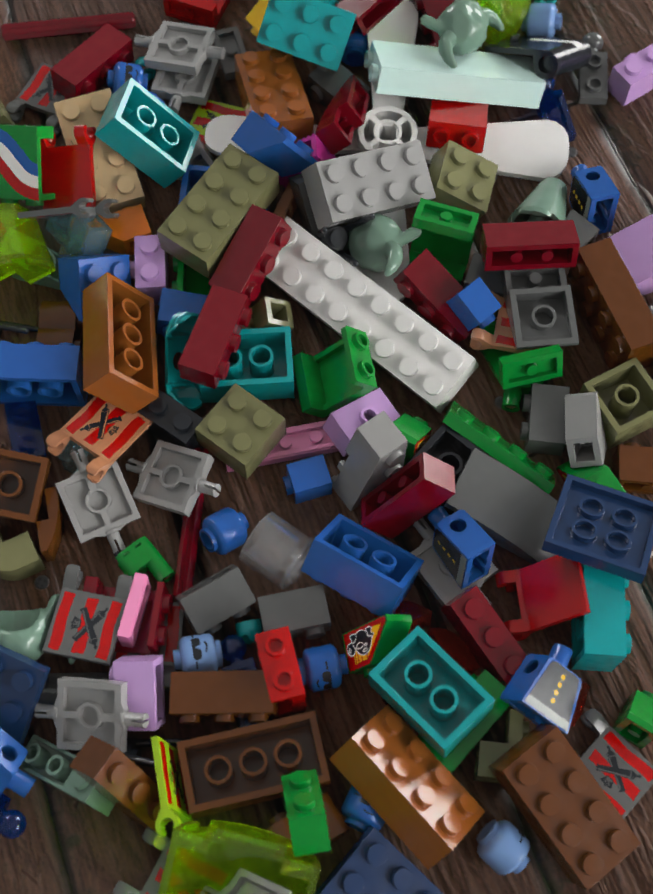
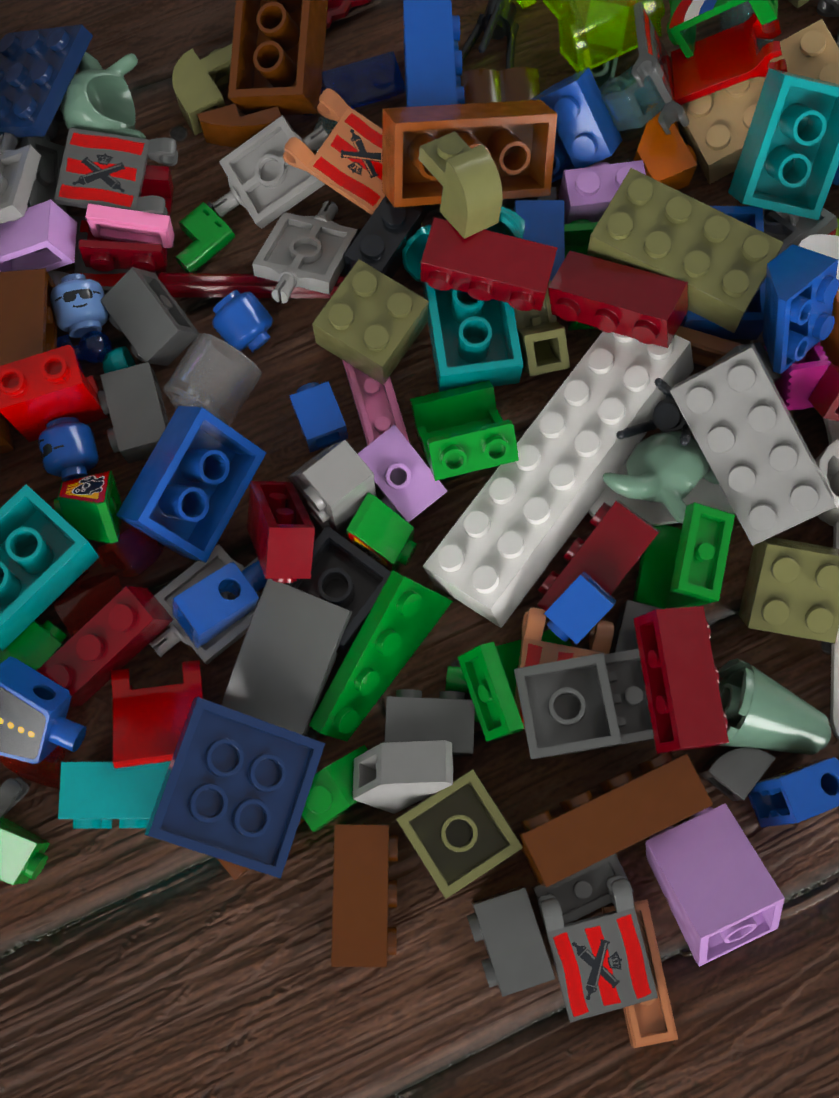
camera: 85 degrees right, 10 degrees up
(160, 328) = (469, 182): none -> olive brick

